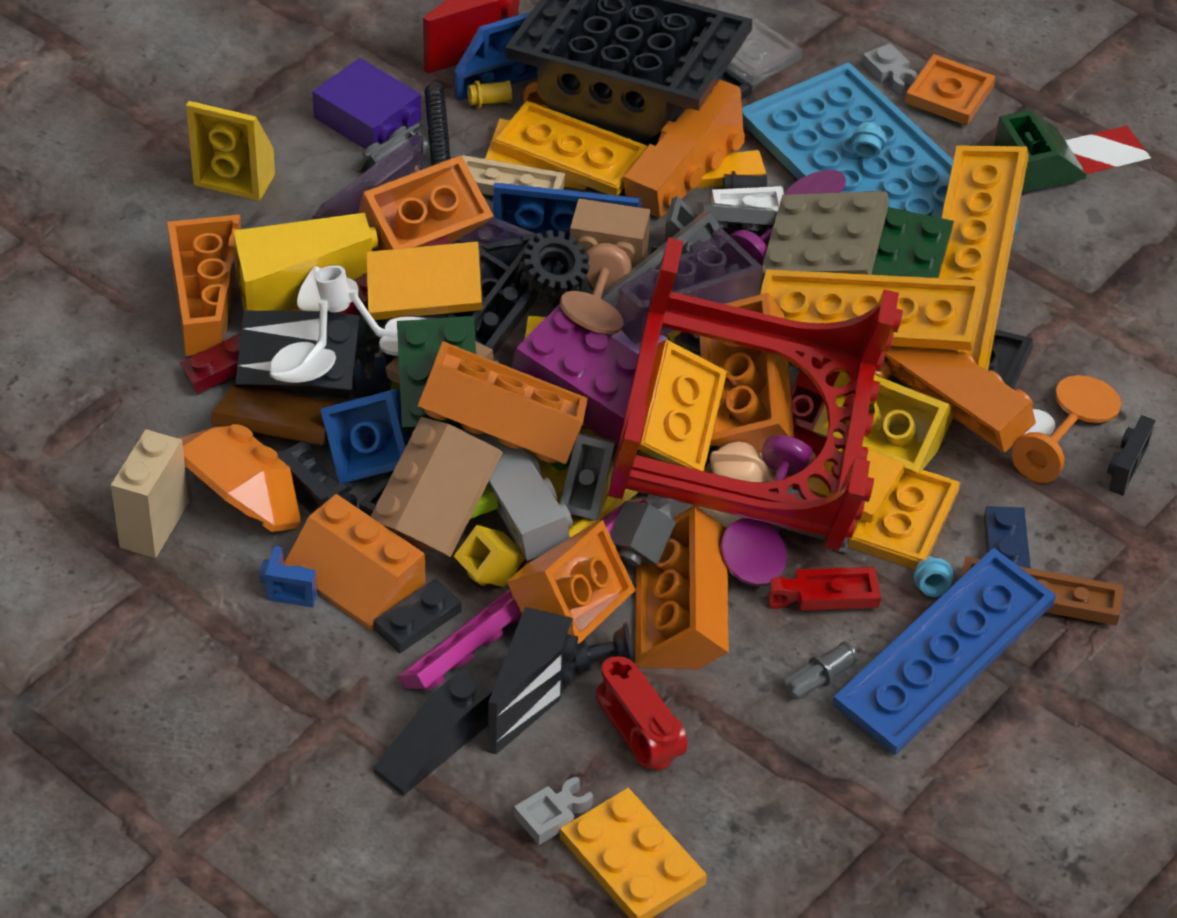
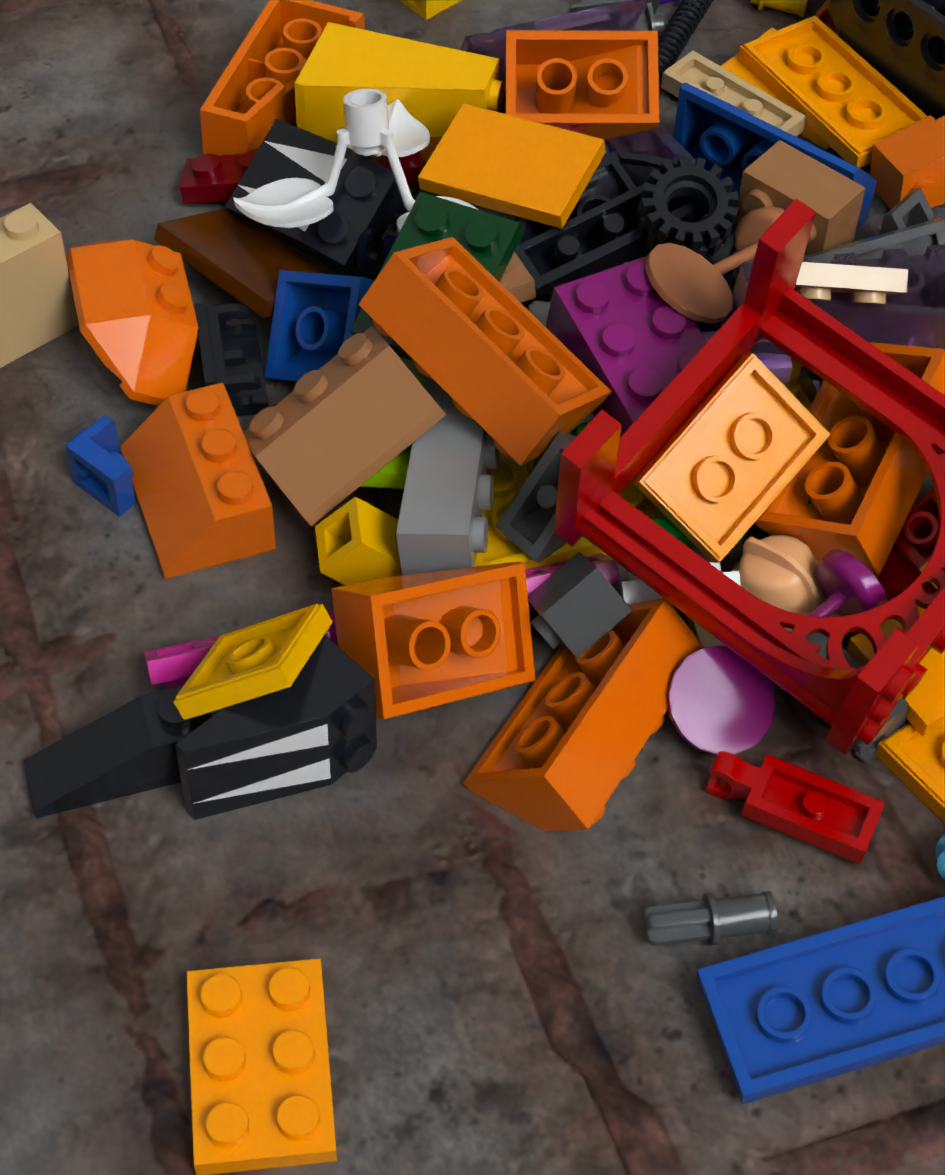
camera: 30 degrees right, 5 degrees up
(417, 615) = (230, 585): black plate -> none
(495, 639) = (253, 661): none -> yellow tile
(547, 812) = (189, 938): light grey plate -> none
(620, 646) = (451, 751): black piece -> none
(640, 714) = (405, 860): red piece -> none
(701, 272) = (865, 283): none -> plate

